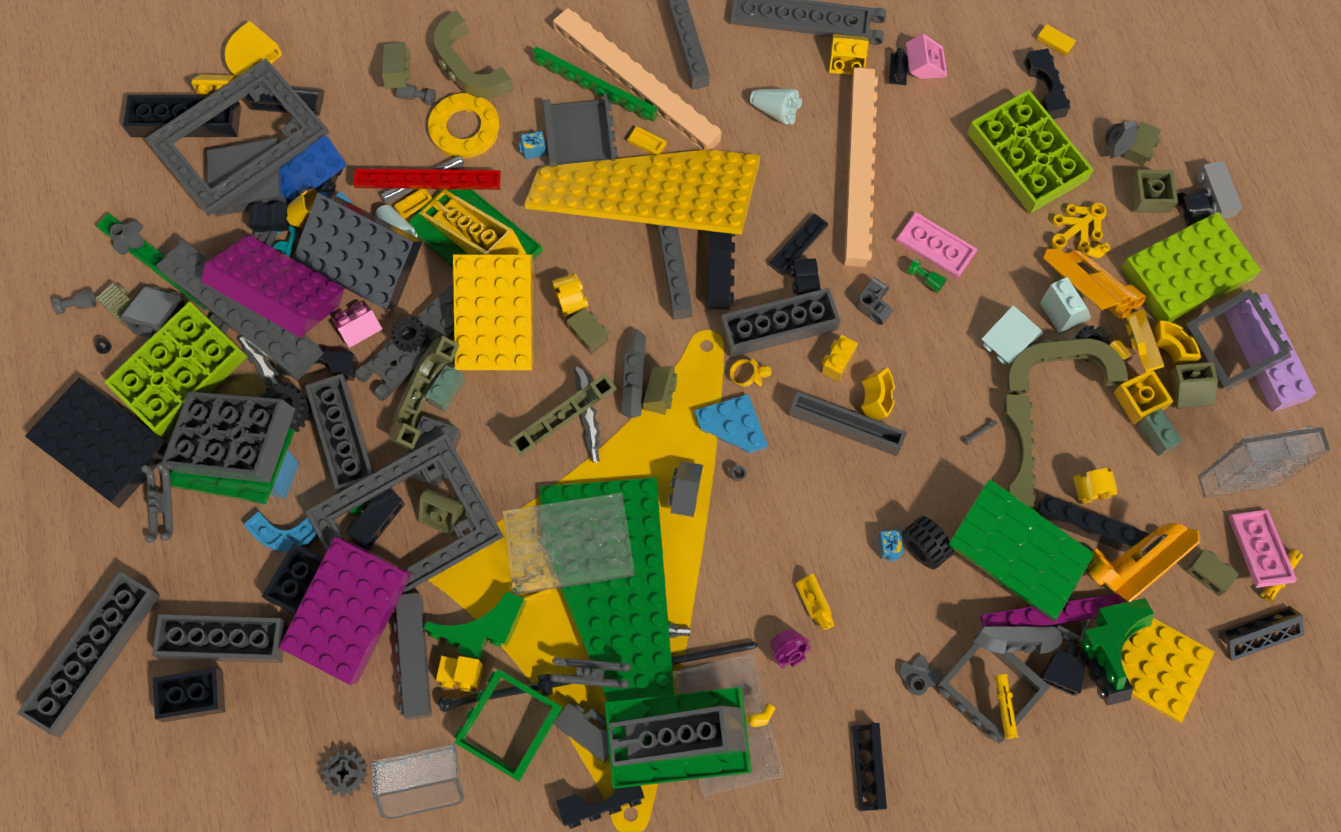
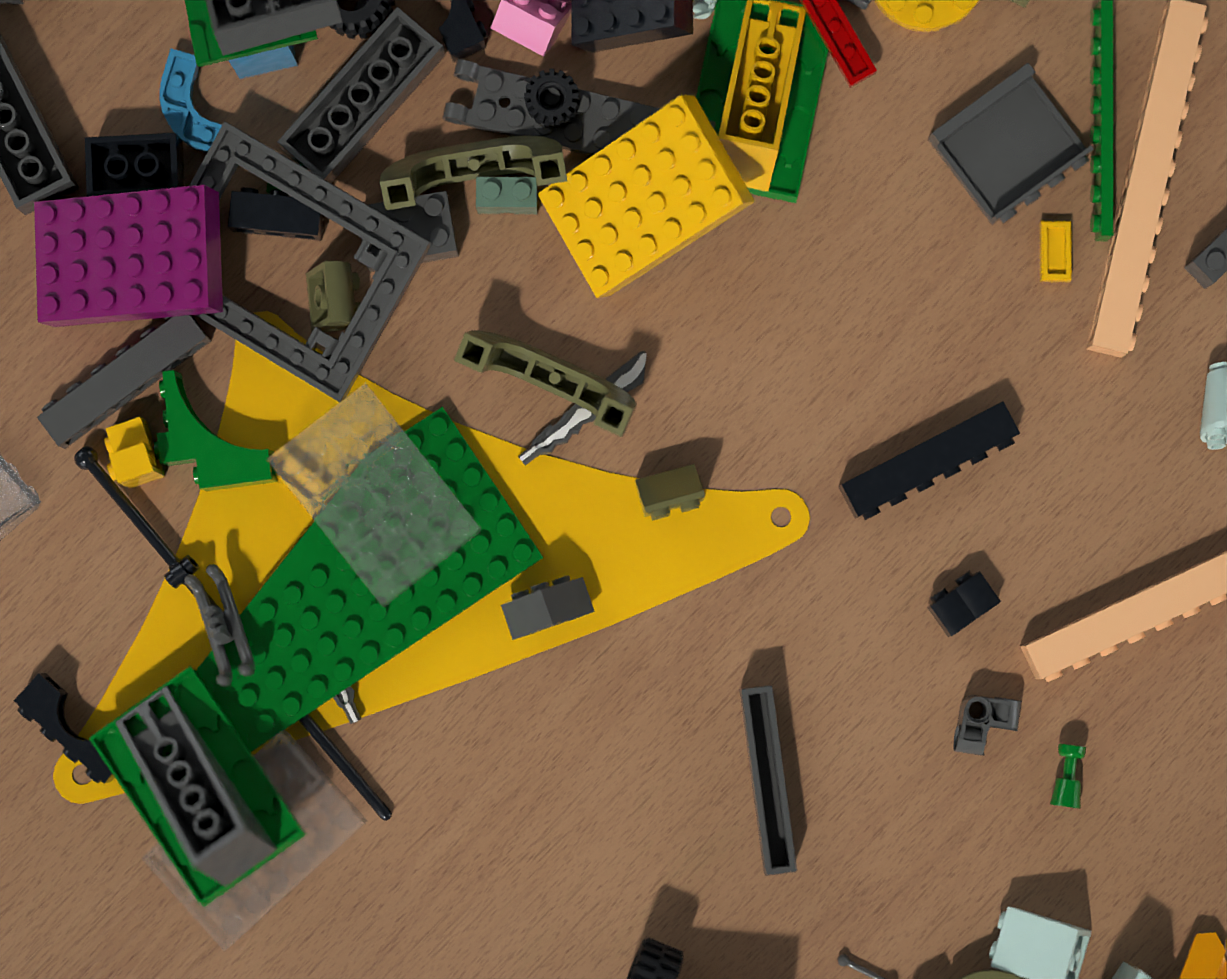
camera: 60 degrees right, 15 degrees up
(474, 713) = (47, 555): green window -> none
(533, 145) = (949, 91): dark azure brick -> none
(569, 294) = (740, 283): yellow brick -> none
(578, 728) = (146, 656): dark grey piece -> none
(587, 330) = (705, 339): olive brick -> none
(633, 374) = (676, 440): dark grey brick -> none
(671, 189) = (986, 328): yellow wing -> none
(675, 272) = (876, 401): dark grey brick -> none
(733, 423) = (683, 619): dark azure plate -> none
(739, 470) = (618, 666): dark grey hinge -> none
(759, 372) = (776, 615): yellow piece -> none
(760, 719) = (279, 882): yellow arm -> none
(780, 322) = (870, 604): dark grey brick -> none
(789, 648) = (402, 866): magenta cone -> none
(798, 244) = (1015, 563): black tile -> none
(815, 601) = (488, 867): yellow hinge -> none
(839, 358) = (864, 717): yellow brick -> none
(878, 394) = (836, 802): yellow brick -> none
(890, 545) = (624, 930): dark azure brick -> none
(936, 245) = (1130, 765): bright pink tile -> none

